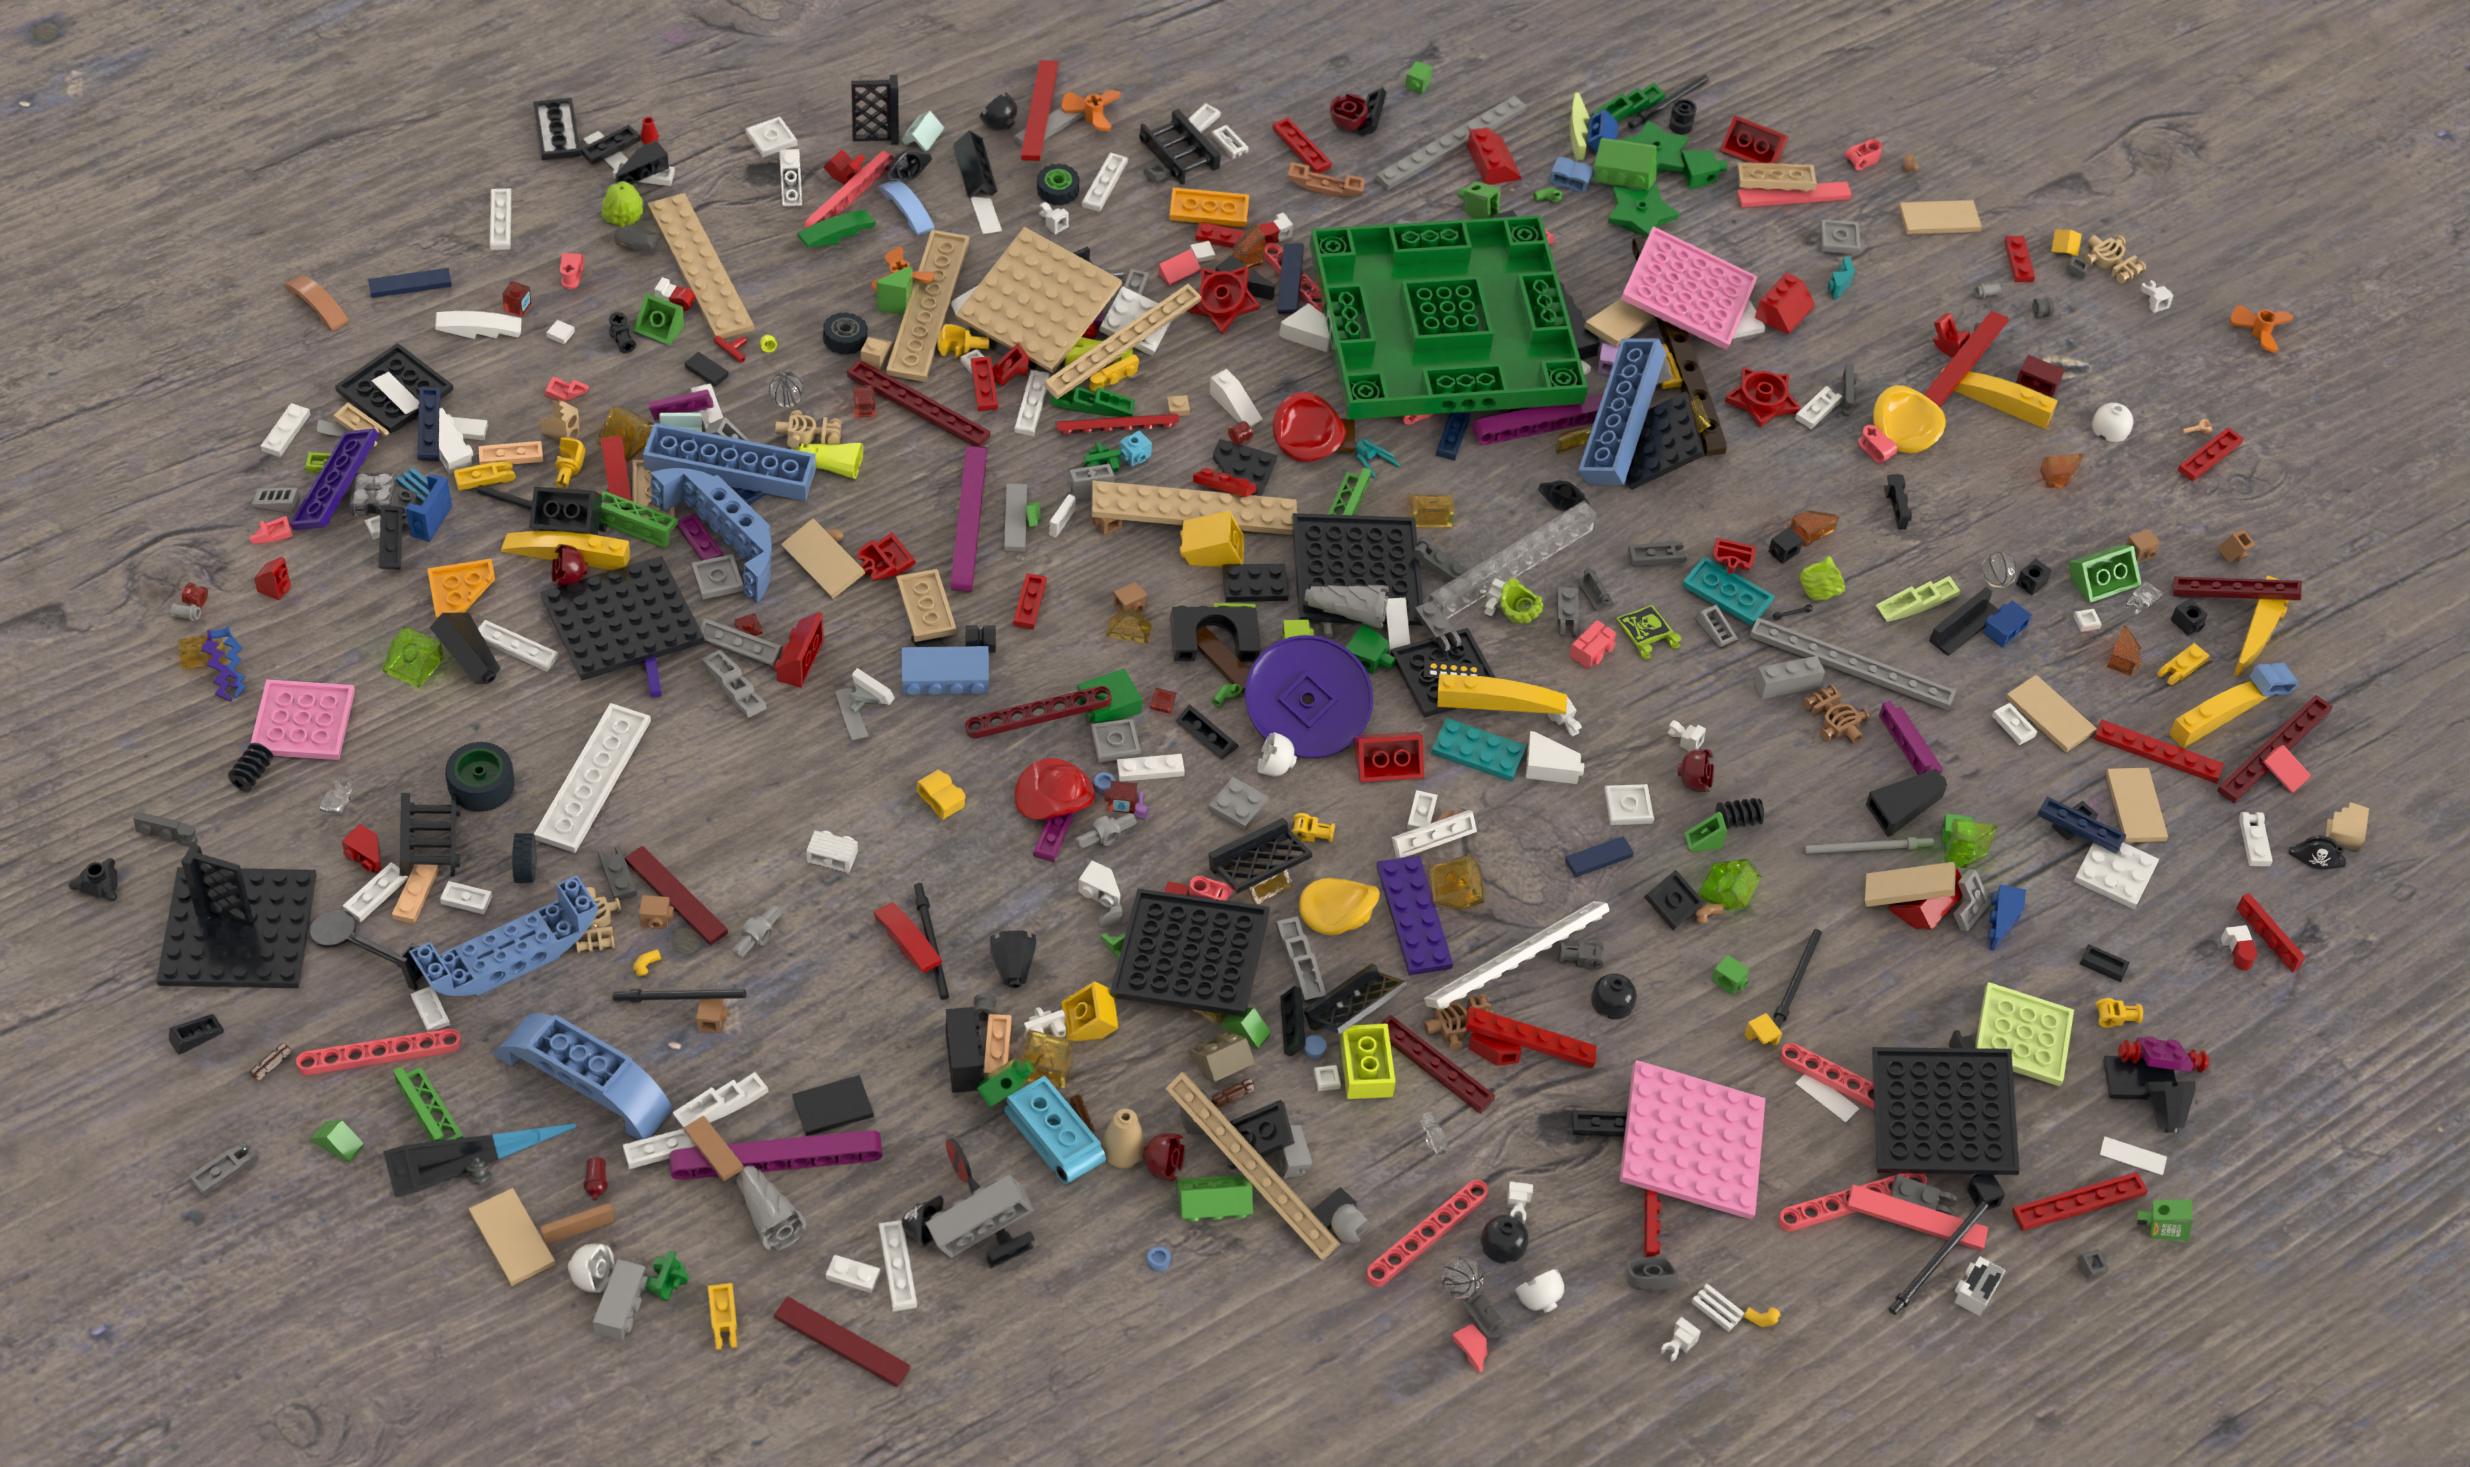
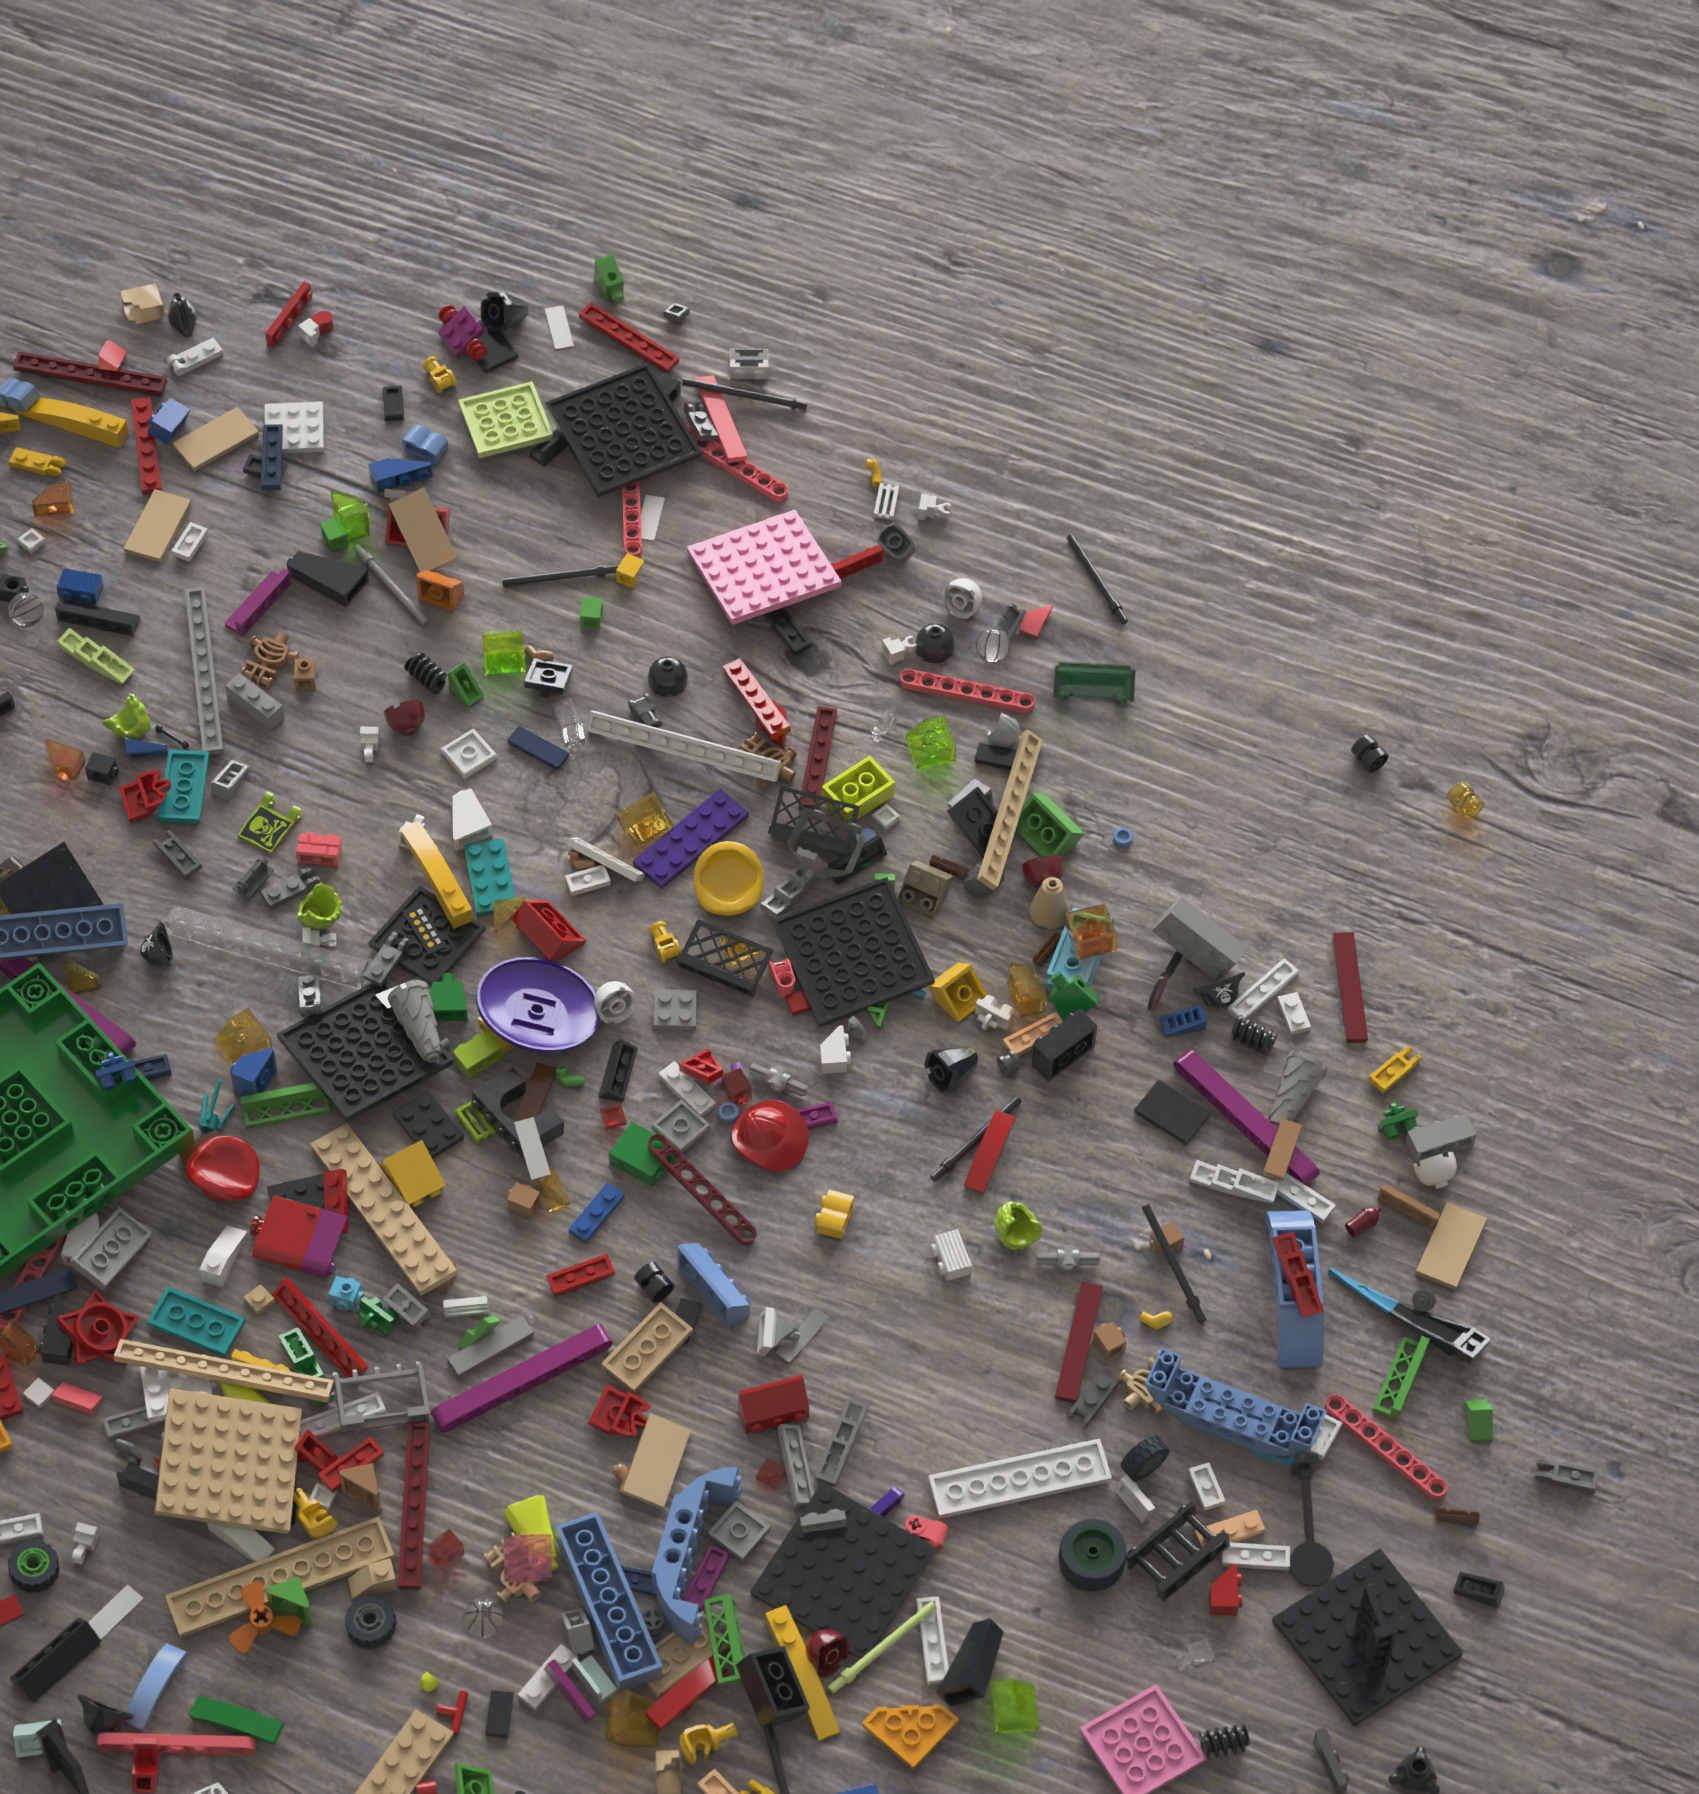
camera: 120 degrees left, 5 degrees up
(492, 840) = (1134, 1499): none -> white plate
(538, 578) = (848, 1674): none -> yellowish green bar
(562, 1038) = (1297, 1275): none -> red slope
(604, 689) = (928, 1530): none -> coral piece
(665, 609) = (829, 1520): none -> light grey plate
(804, 427) = (527, 1557): none -> clear pink slope
(817, 904) = (1017, 1226): none -> lime hair
(852, 1214) = (1253, 1035): none -> black piece
(910, 1189) = (1190, 1013): none -> blue slope
(953, 373) = (361, 1486): none -> medium nougat slope
(1015, 396) = (358, 1422): none -> light grey hinge
(1052, 1122) = (1091, 931): none -> clear orange brick
(1081, 644) = (596, 1213): none -> blue plate
(1158, 778) = (702, 1067): none -> red wing
(1166, 614) = (532, 1148): none -> white sticker
(1187, 359) = (196, 1321): none -> teal plate
(1209, 444) = (299, 1237): none -> red door
(1290, 332) = (110, 1248): none -> light grey tile
(1302, 958) = (812, 861): none -> light grey piece
(1368, 1347) = (1093, 680): none -> clear green windscreen
(1382, 1163) = (931, 742): none -> clear neon green slope
(1384, 485) = (253, 1072): none -> blue slope
(1431, 731) = (504, 909): none -> clear yellow slope
(1438, 375) = (106, 1074): none -> blue hips
(1442, 1431) = (1114, 606): none -> black bar
(1610, 888) = (568, 722): none -> clear slope
(1788, 581) = (140, 748): none -> blue slope
(1799, 729) = (305, 674): none -> medium nougat brick
(1835, 869) = (439, 589): none -> orange slope
(2031, 955) = (425, 444): none -> medium blue brick
(2175, 769) = (168, 420): none -> brick

